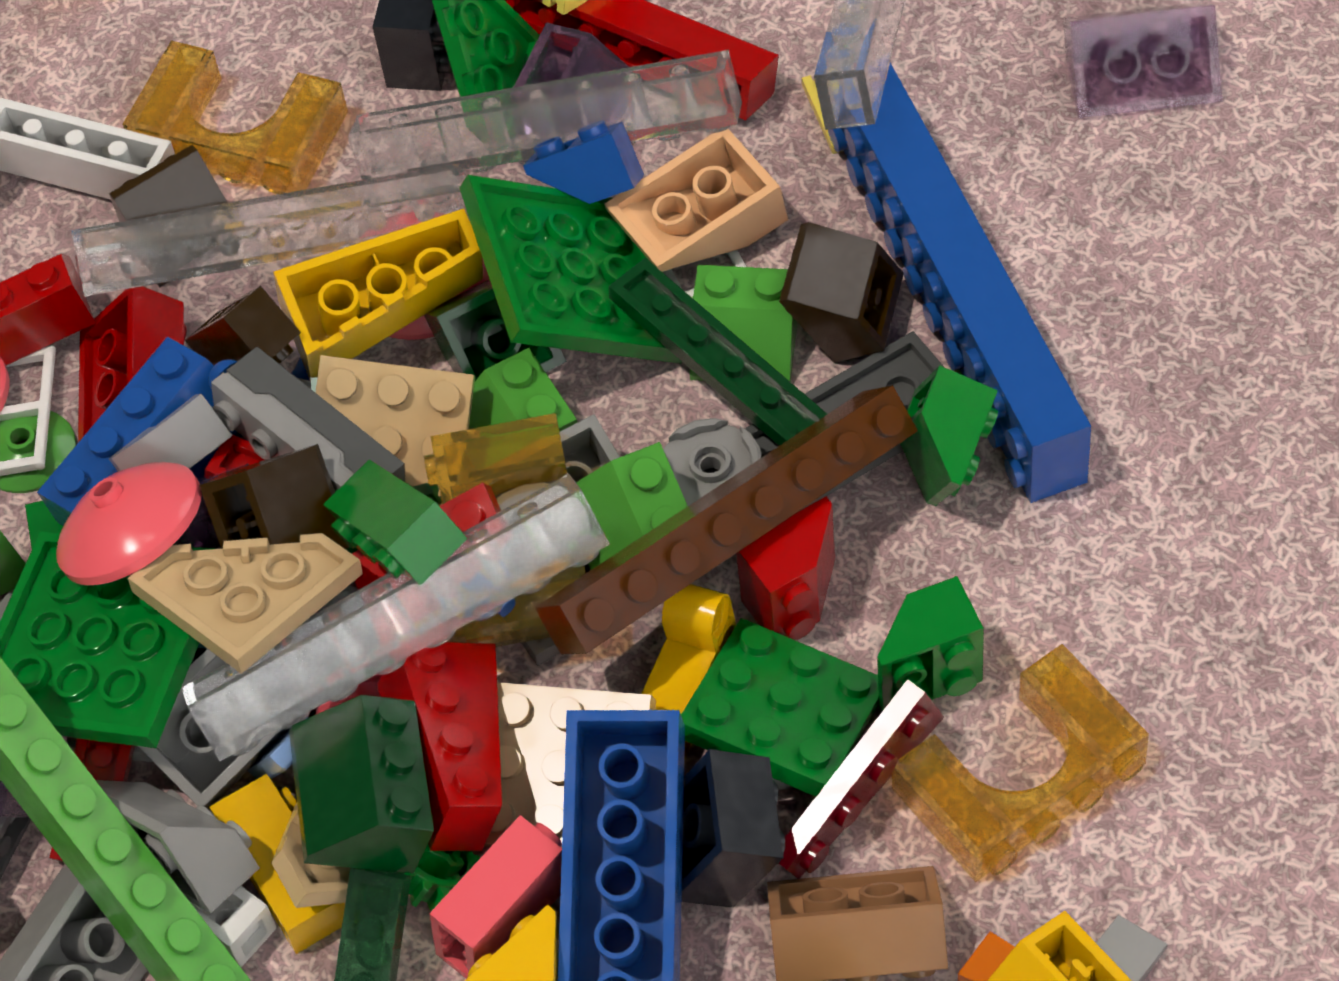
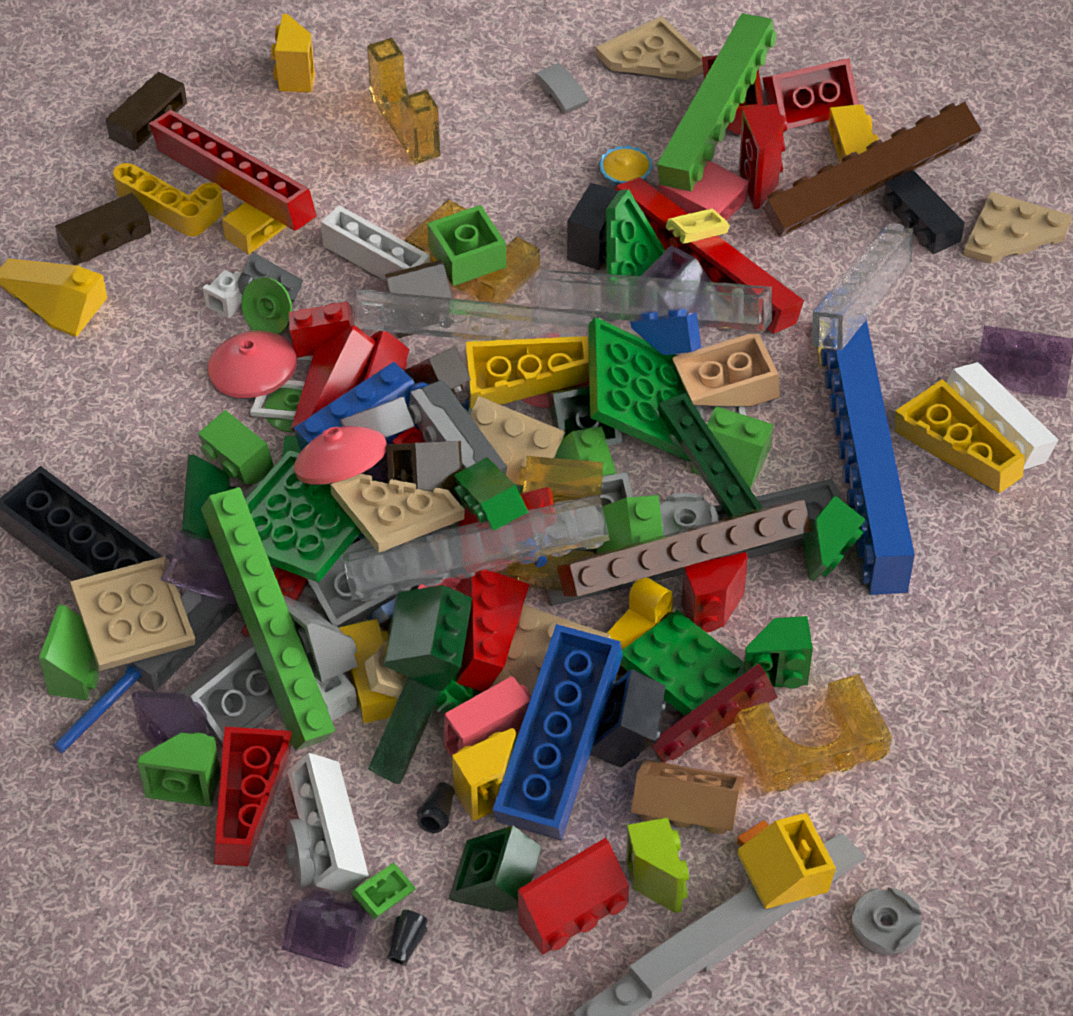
camera: 10 degrees right, 5 degrees down
(72, 379) = (333, 371): none -> red slope
(225, 109) = (467, 245): none -> bright green brick
(841, 291) = (795, 443): dark brown slope -> none
(1088, 208) = (960, 436): none -> yellow wedge
(1136, 158) = (1003, 413): none -> white brick

